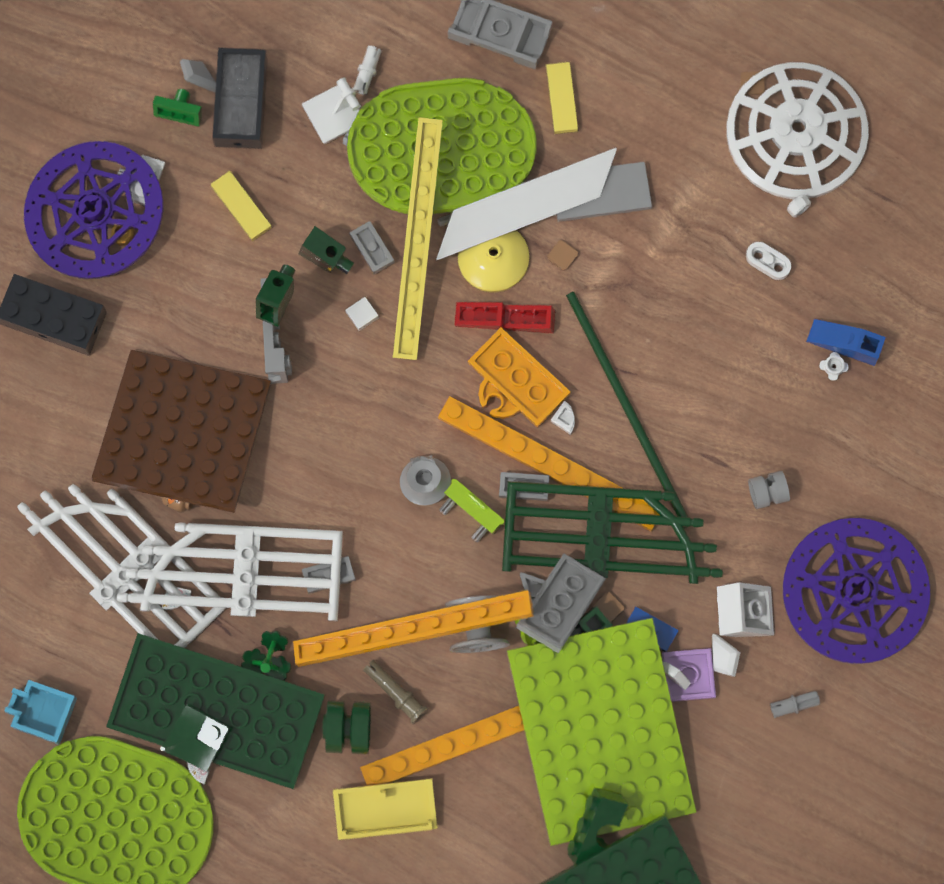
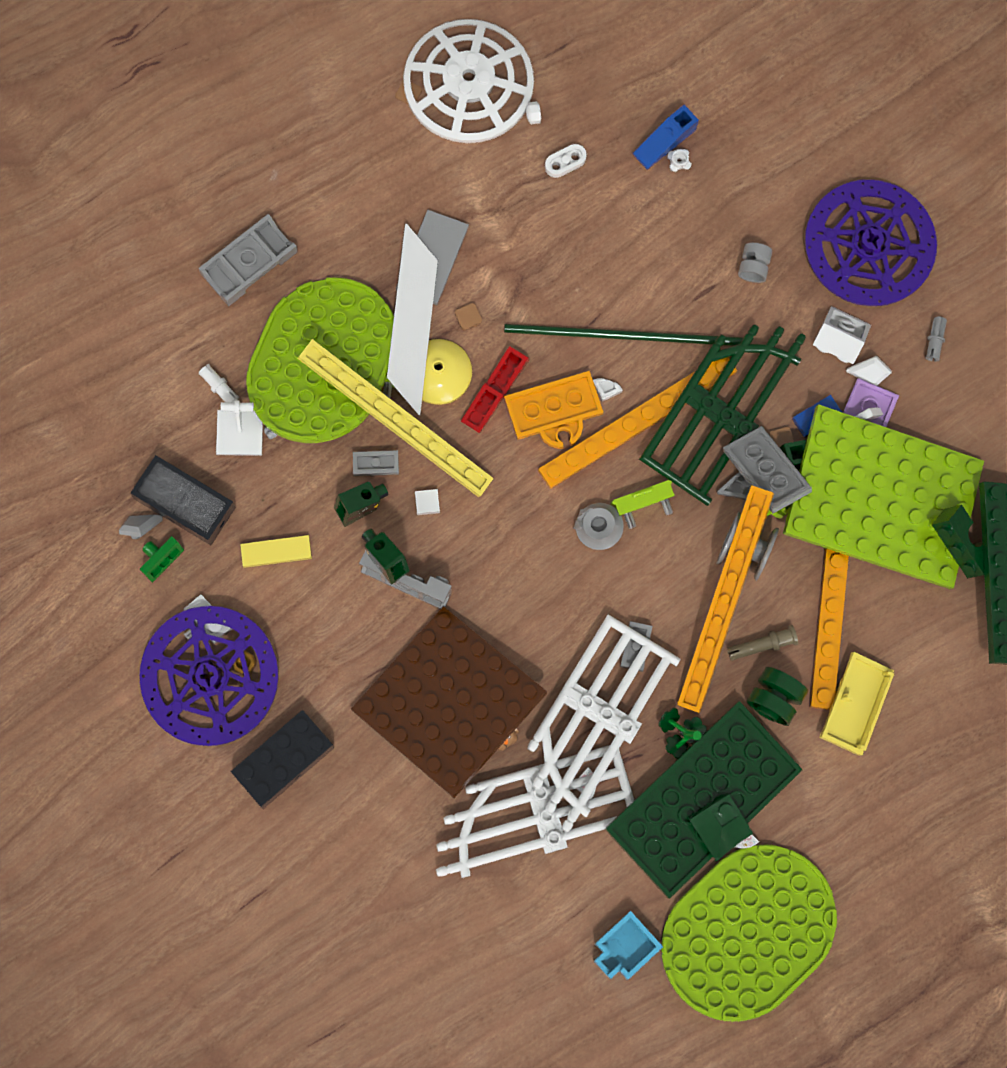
camera: 70 degrees left, 0 degrees up
(519, 477) = (634, 462): light grey plate -> none
(562, 98) = (334, 244): light yellow tile -> none

